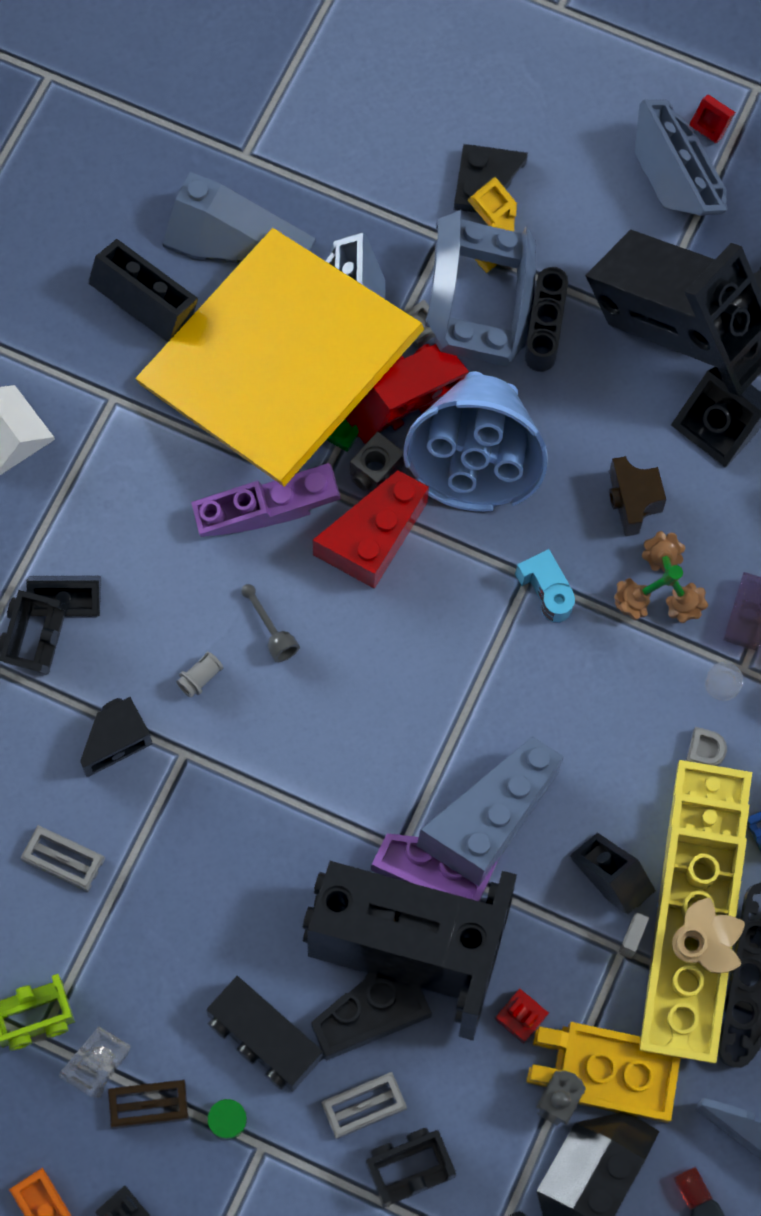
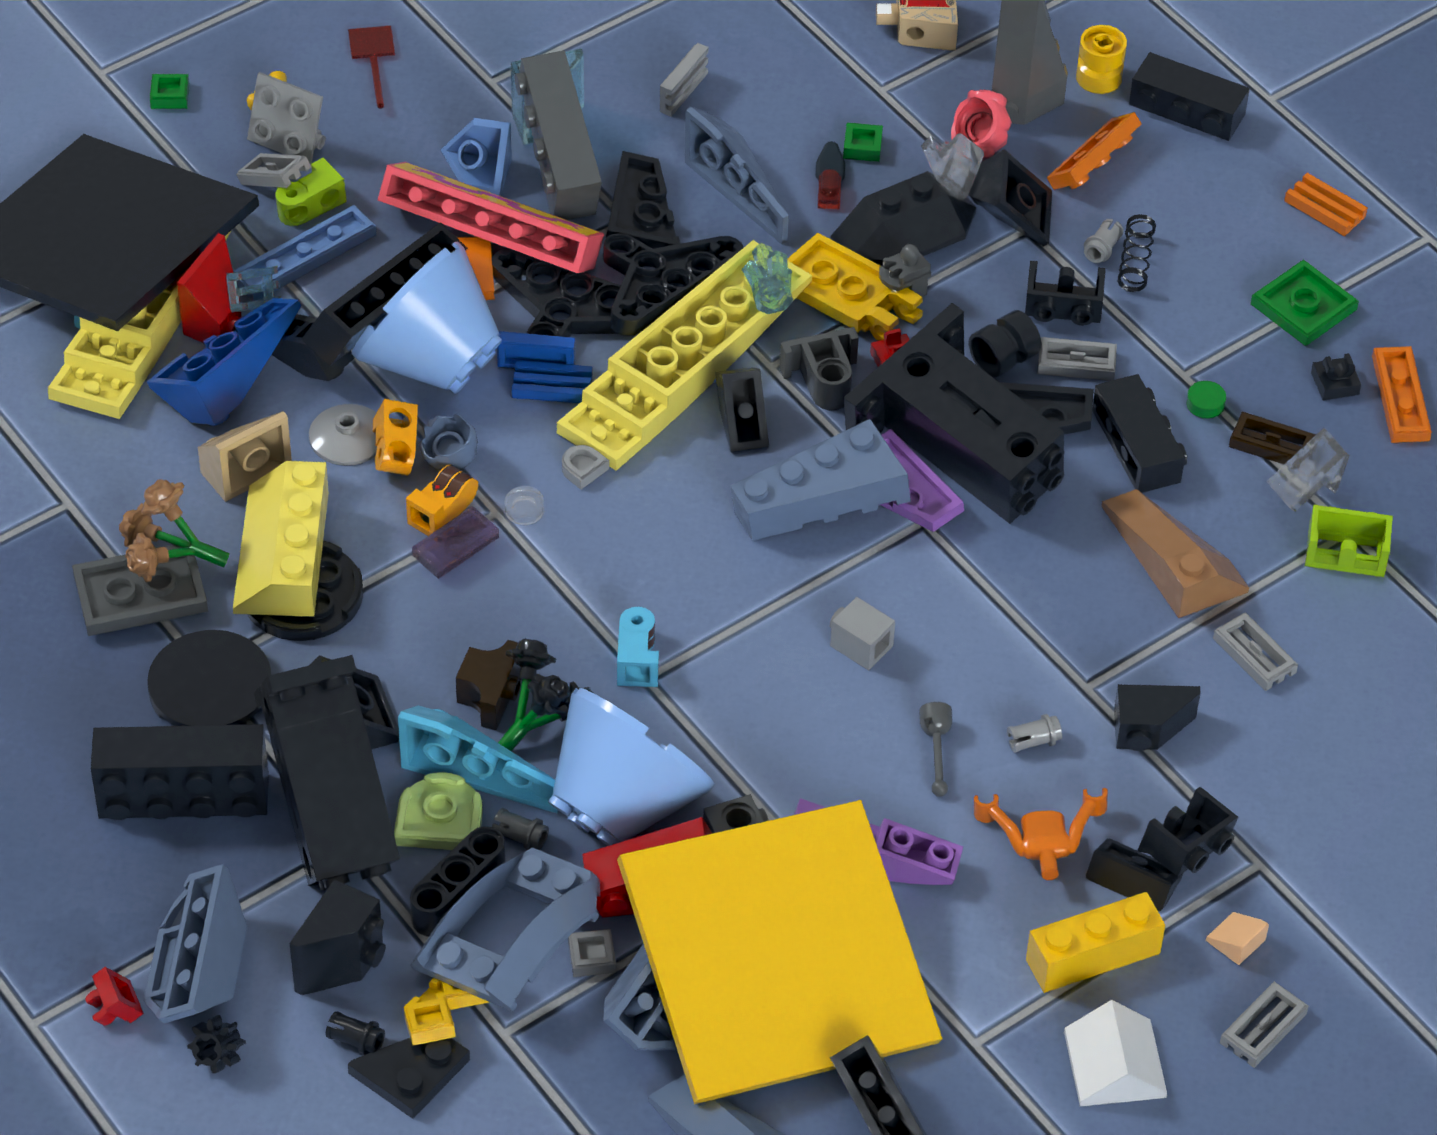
camera: 150 degrees left, 20 degrees down
(60, 504) = (1095, 942): none -> yellow brick
(146, 582) = (1043, 831): none -> orange piece
(166, 919) = (1176, 559): none -> medium nougat wedge
(373, 529) = (781, 765): red wedge -> none
(383, 692) = (862, 633): none -> light grey brick
(431, 1066) = (1002, 346): none -> black wheel
(534, 387) = (523, 830): none -> dark grey pin
(538, 177) = (363, 1035): none -> black pin
(569, 463) = (549, 693): none -> black plant
(575, 961) = (824, 364): none -> dark grey pin
(590, 218) = (337, 940): none -> black slope
(599, 376) = (437, 812): none -> yellowish green tile
(620, 116) = (212, 1054): none -> black gear
(623, 418) = (444, 743): none -> medium azure wedge
(633, 935) = (758, 353): light grey tile -> none
(662, 553) = (514, 573): medium nougat plant -> none
(666, 1002) = (769, 279): none -> clear light blue rock
(714, 938) = (700, 305): tan plate -> none

